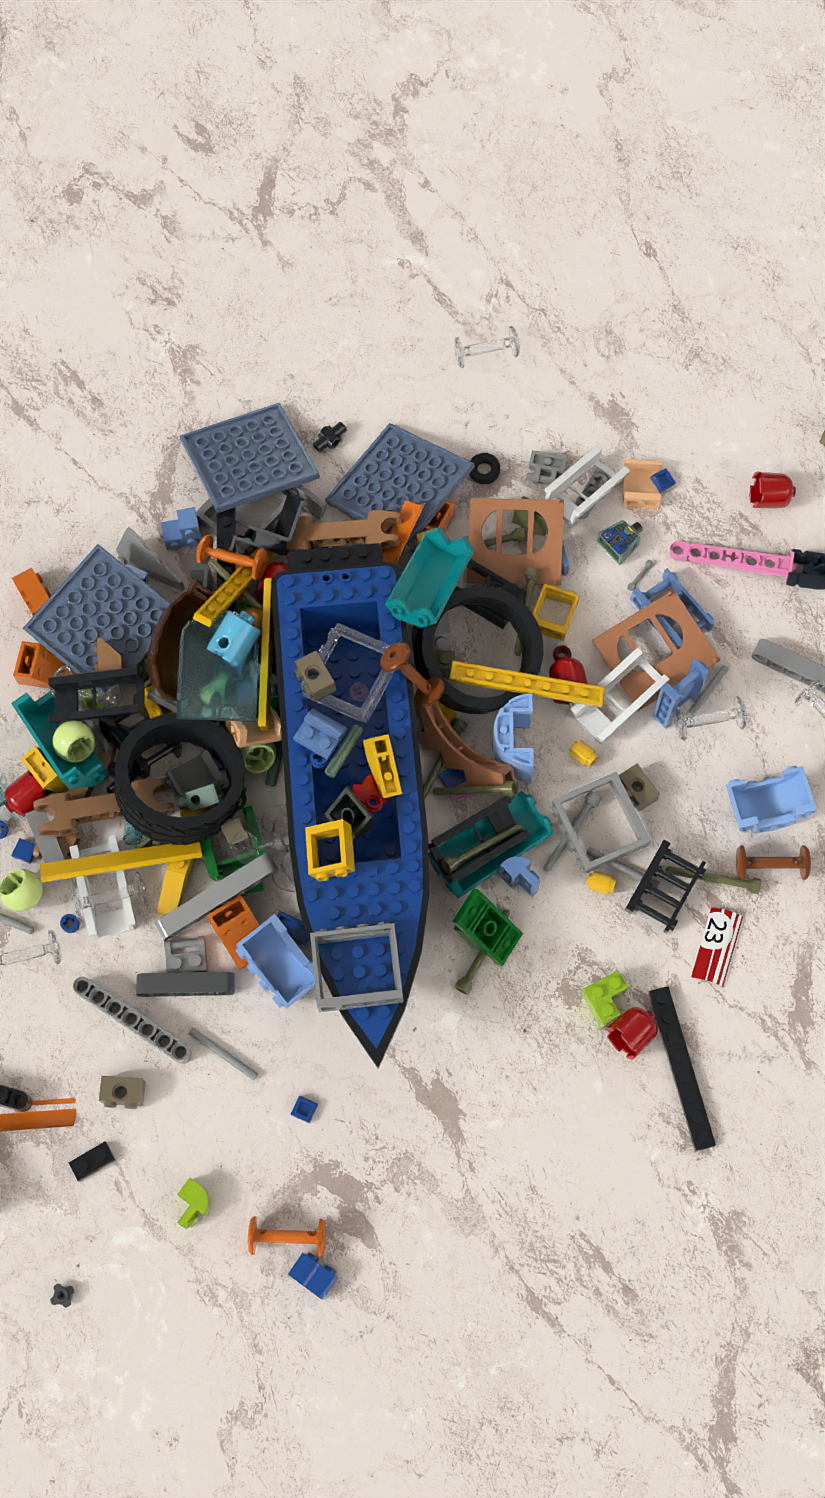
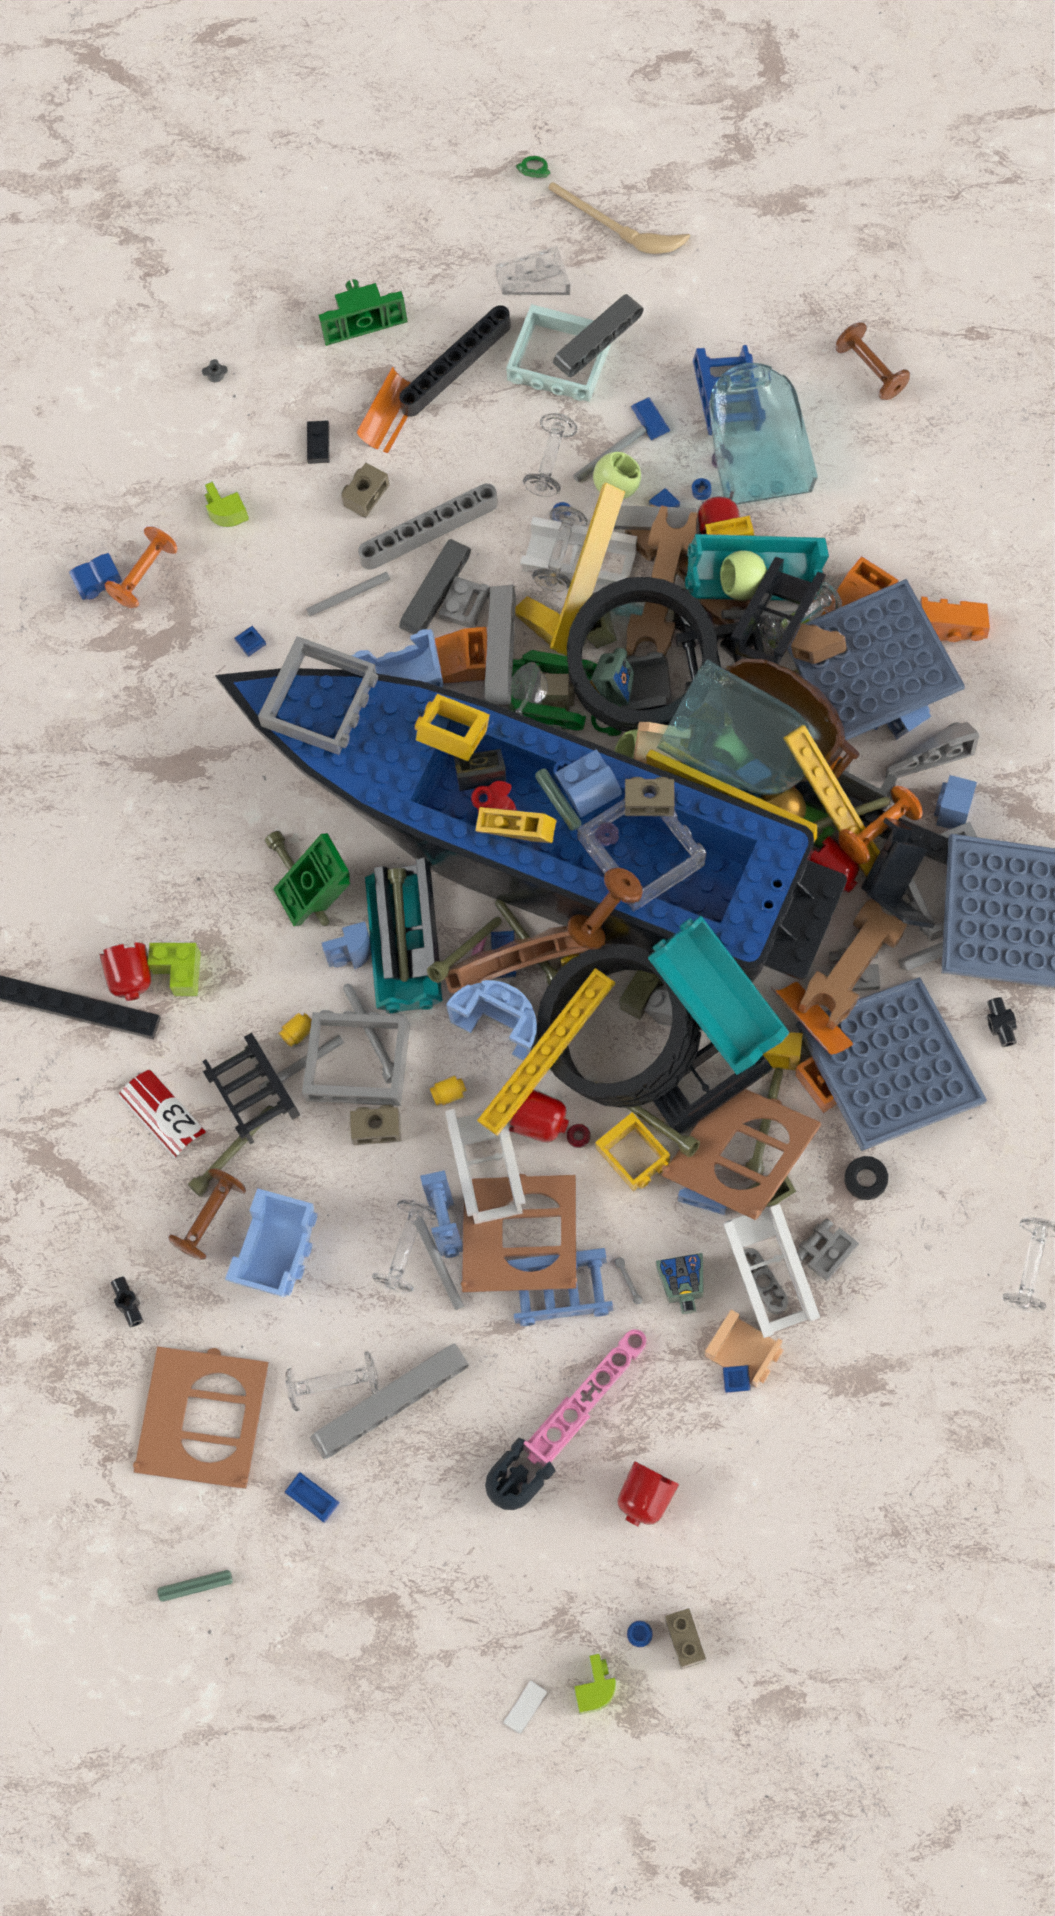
camera: 125 degrees right, 0 degrees up
(234, 638) = (756, 757): medium azure cylinder -> none

